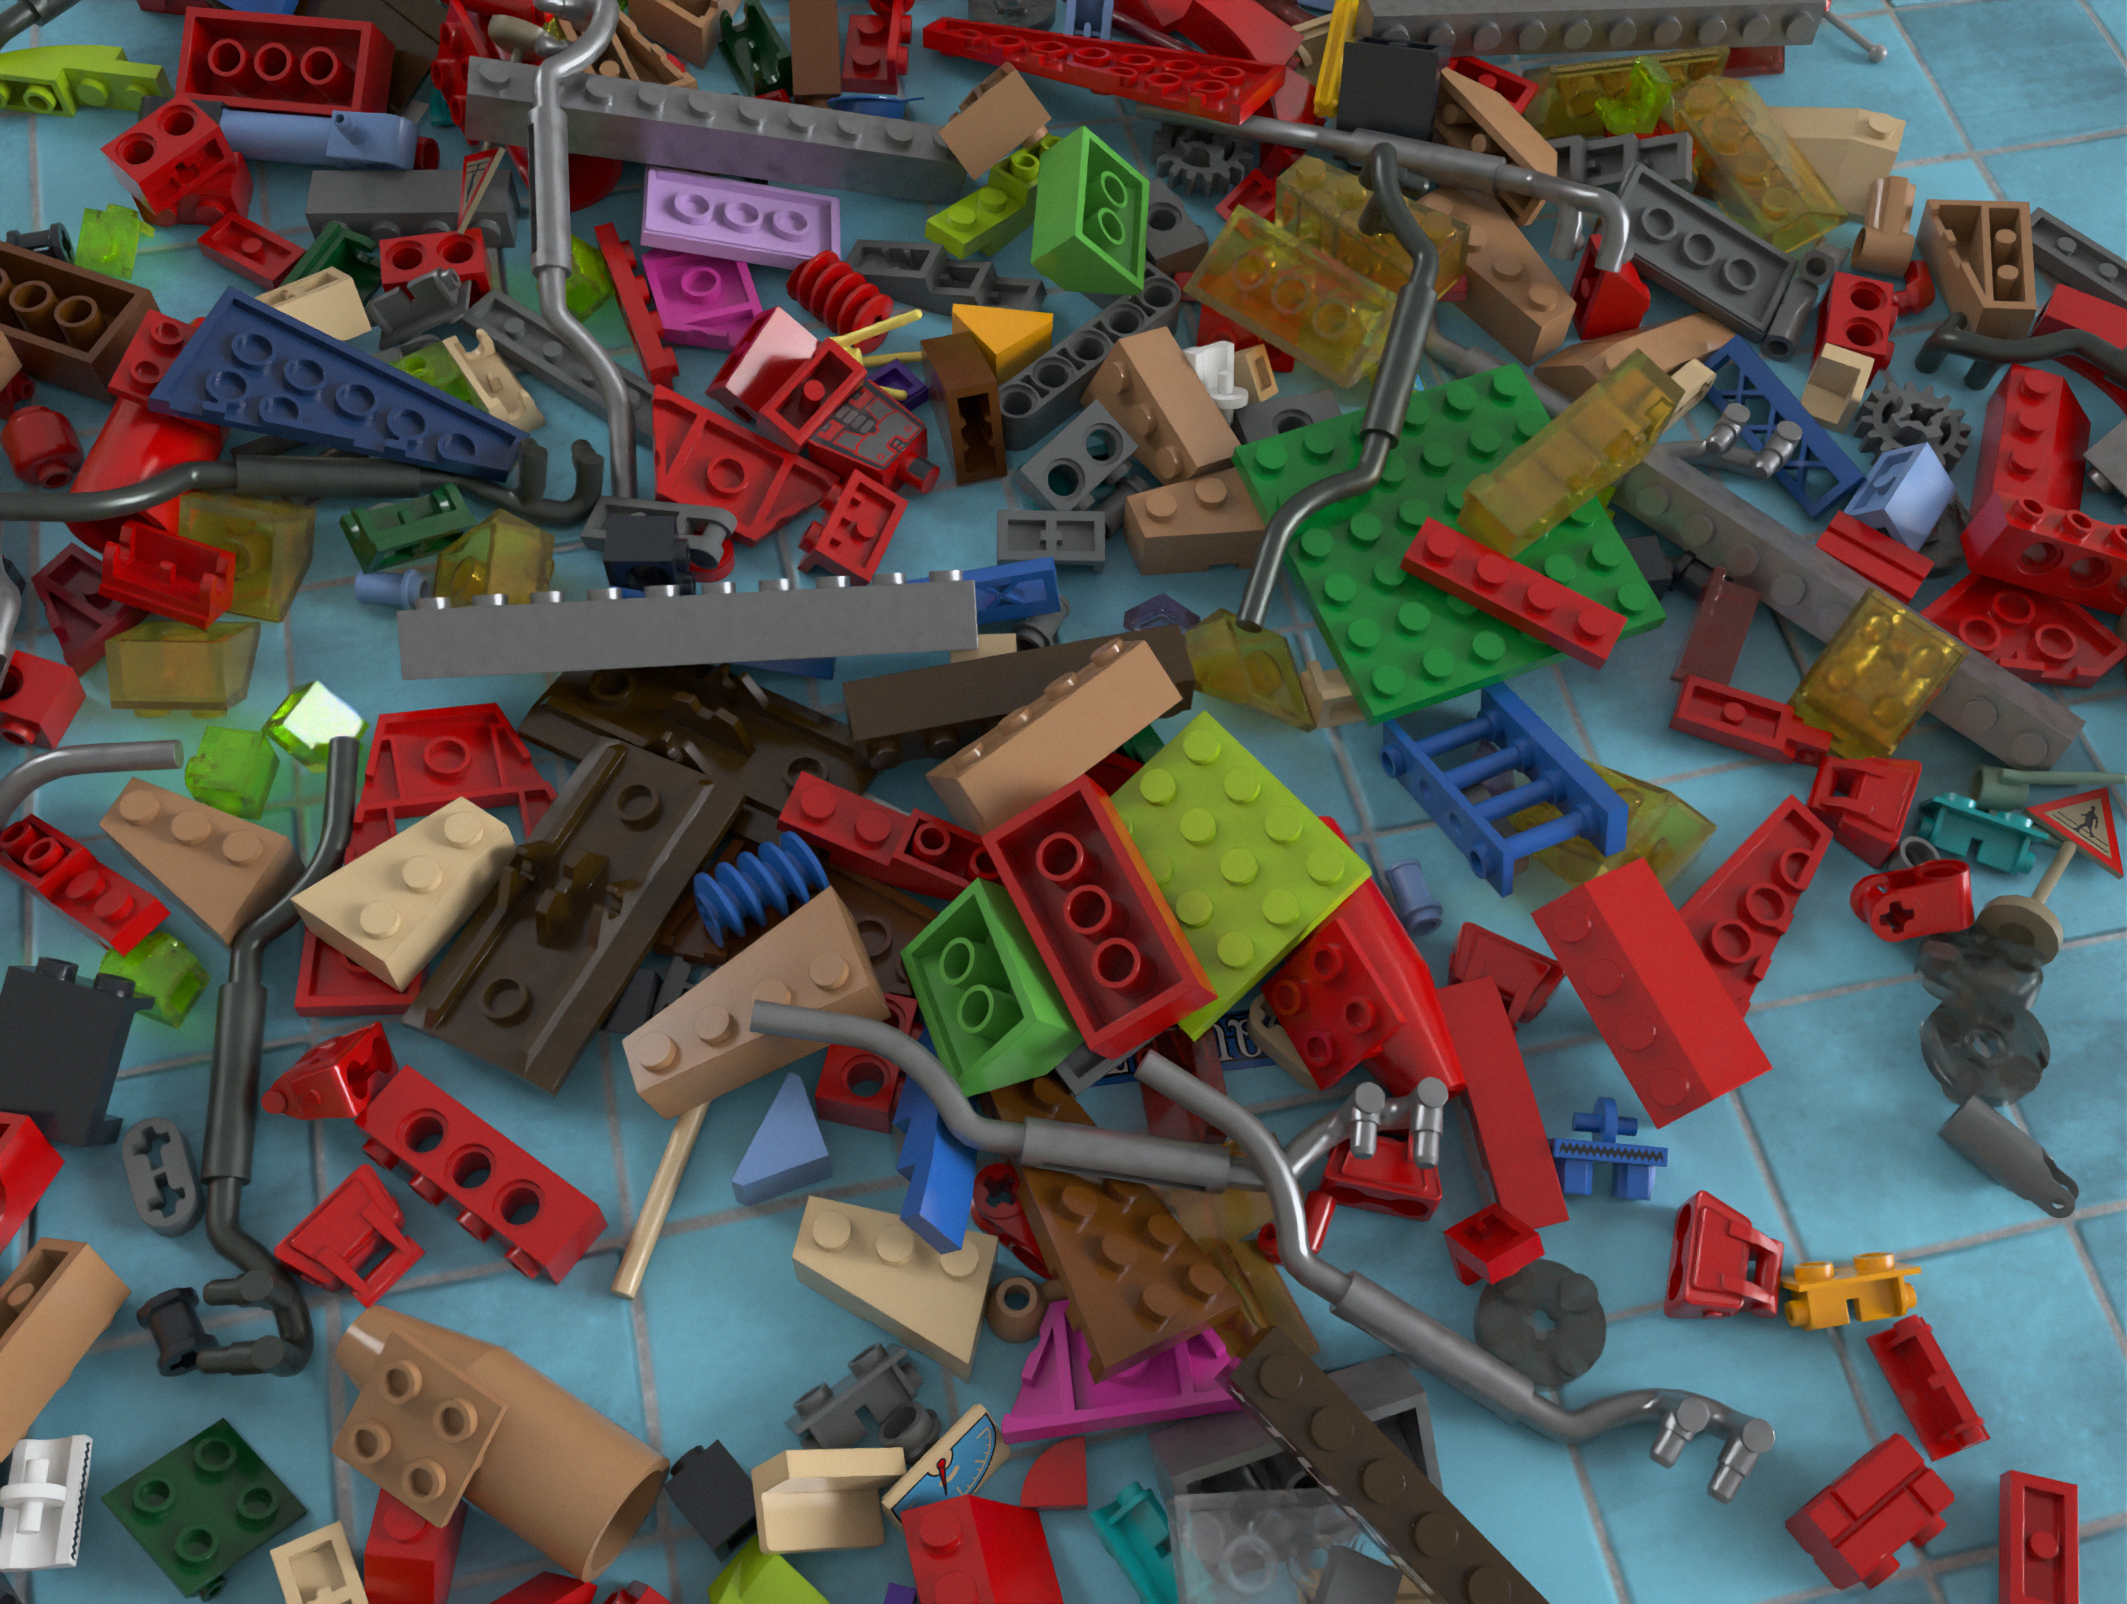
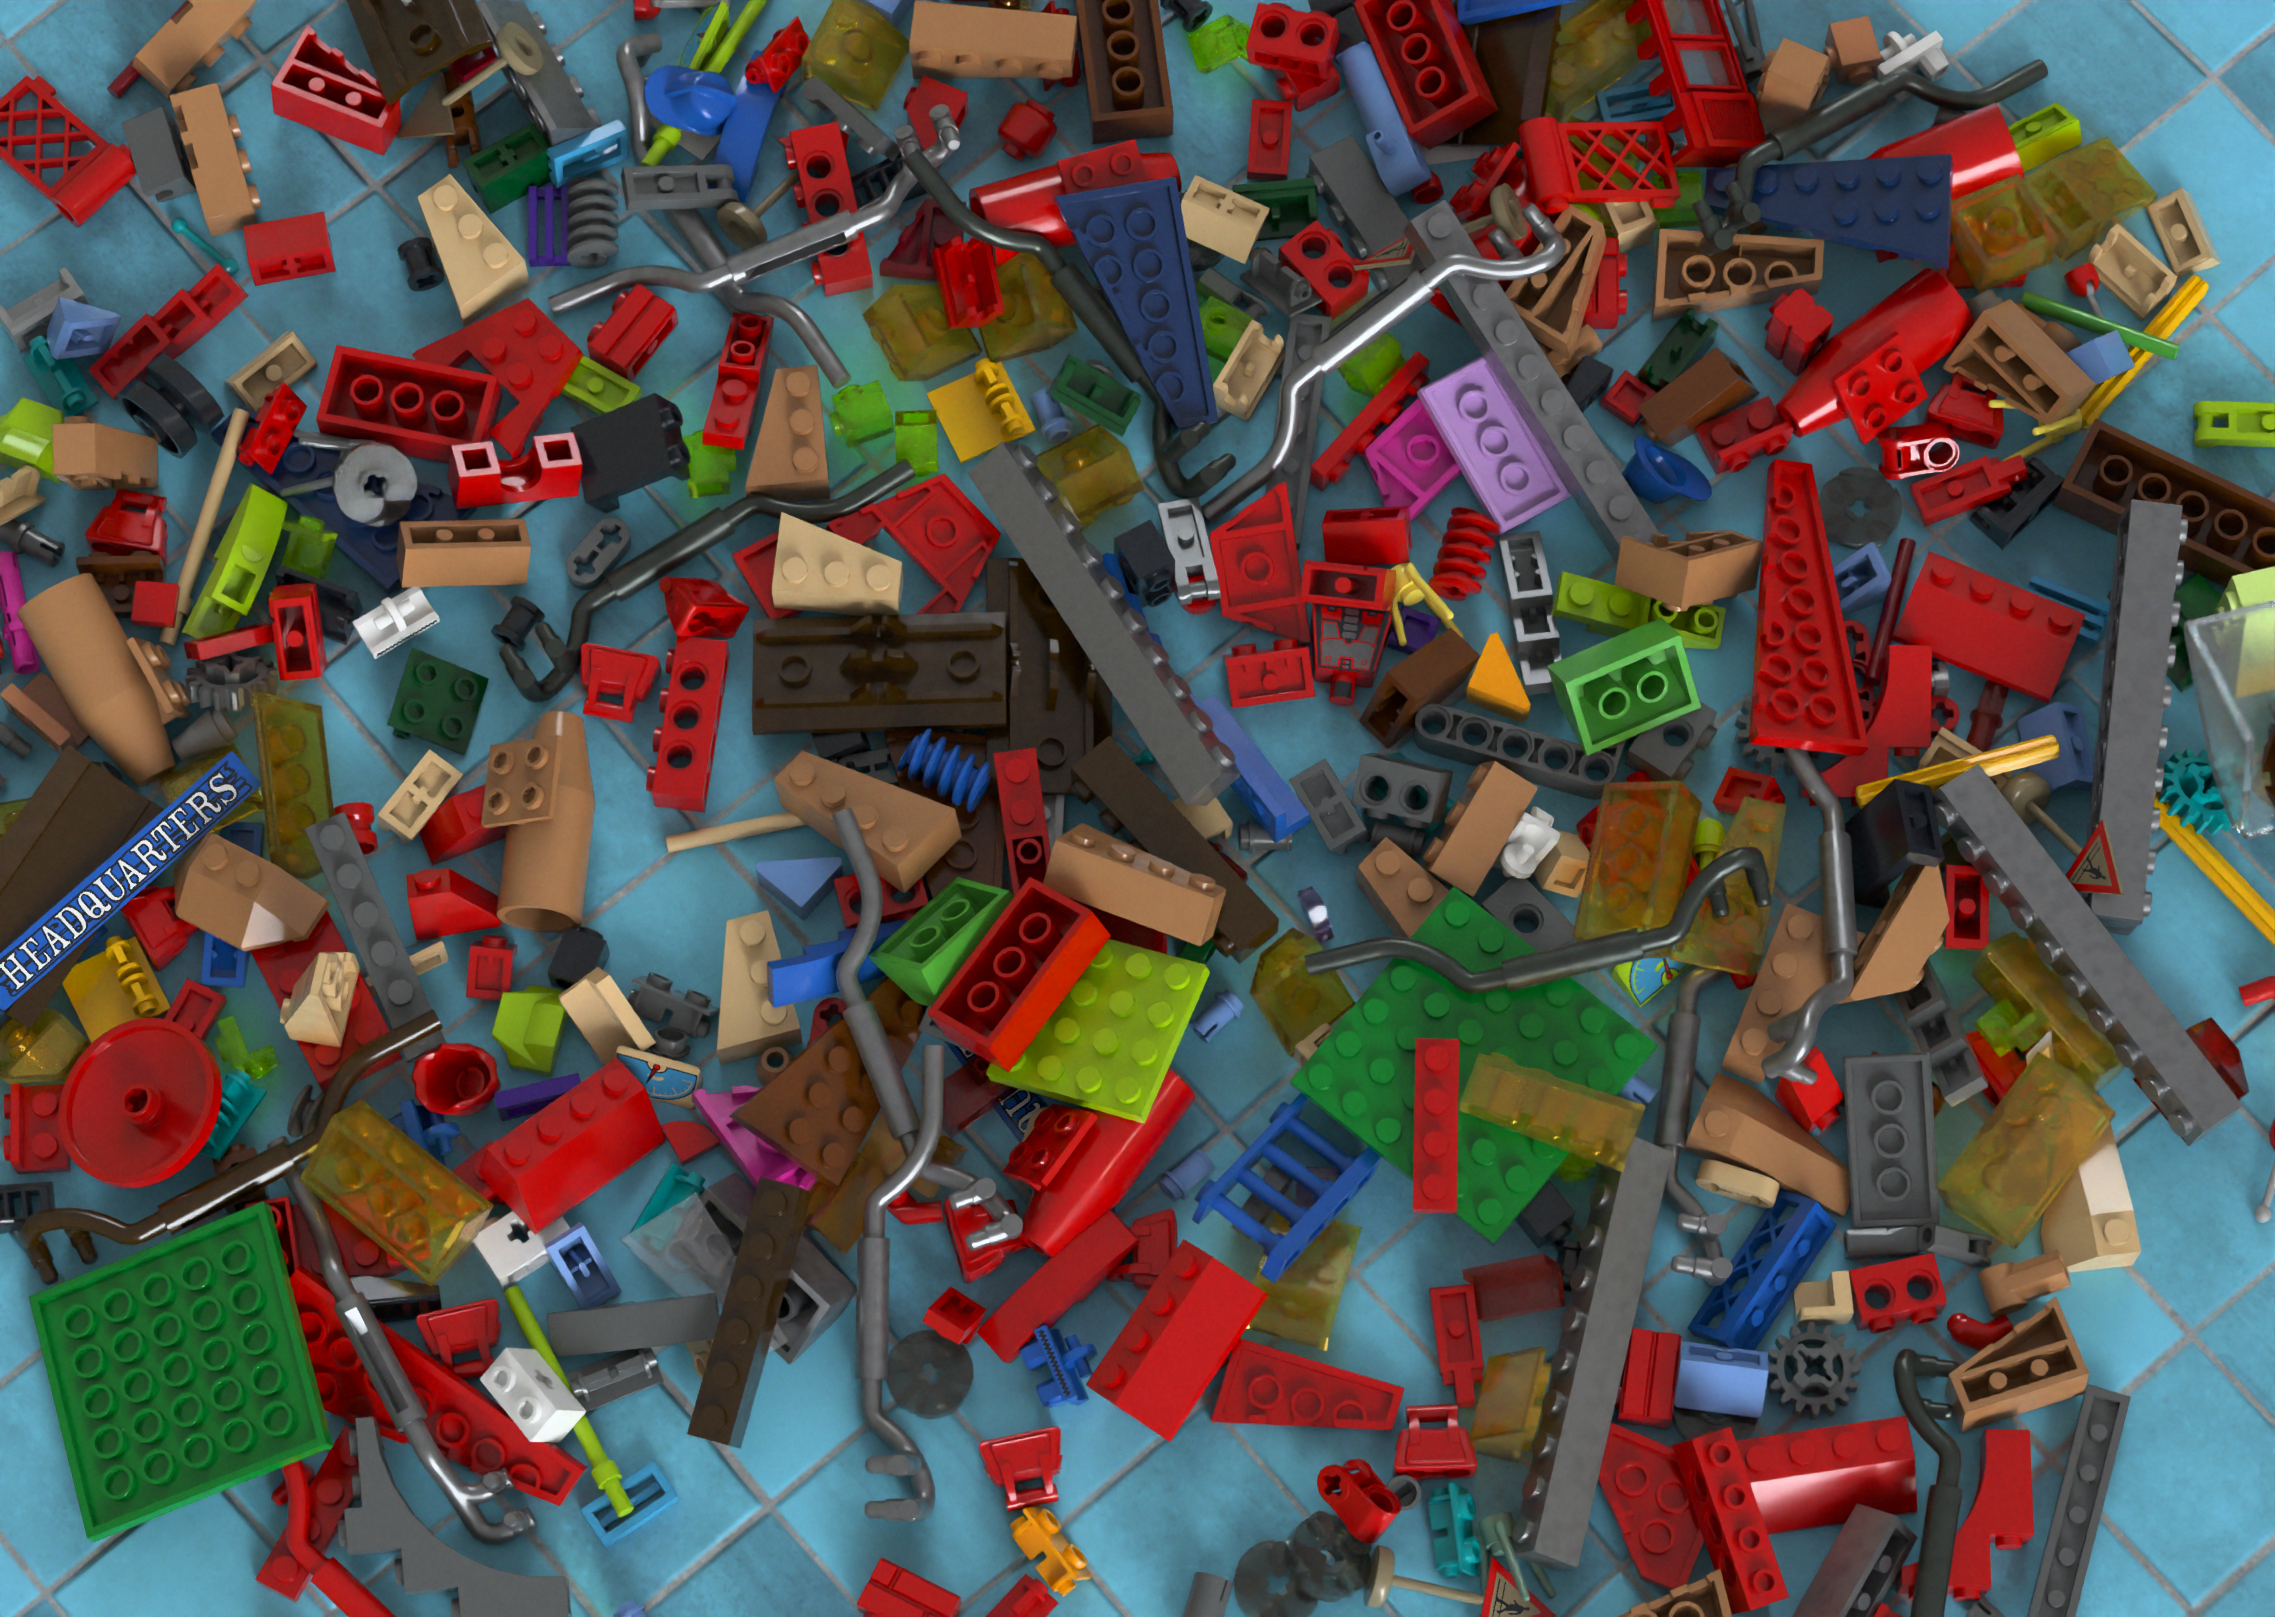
camera: 65 degrees right, 10 degrees up
(335, 647) = (980, 410): none -> yellow hinge

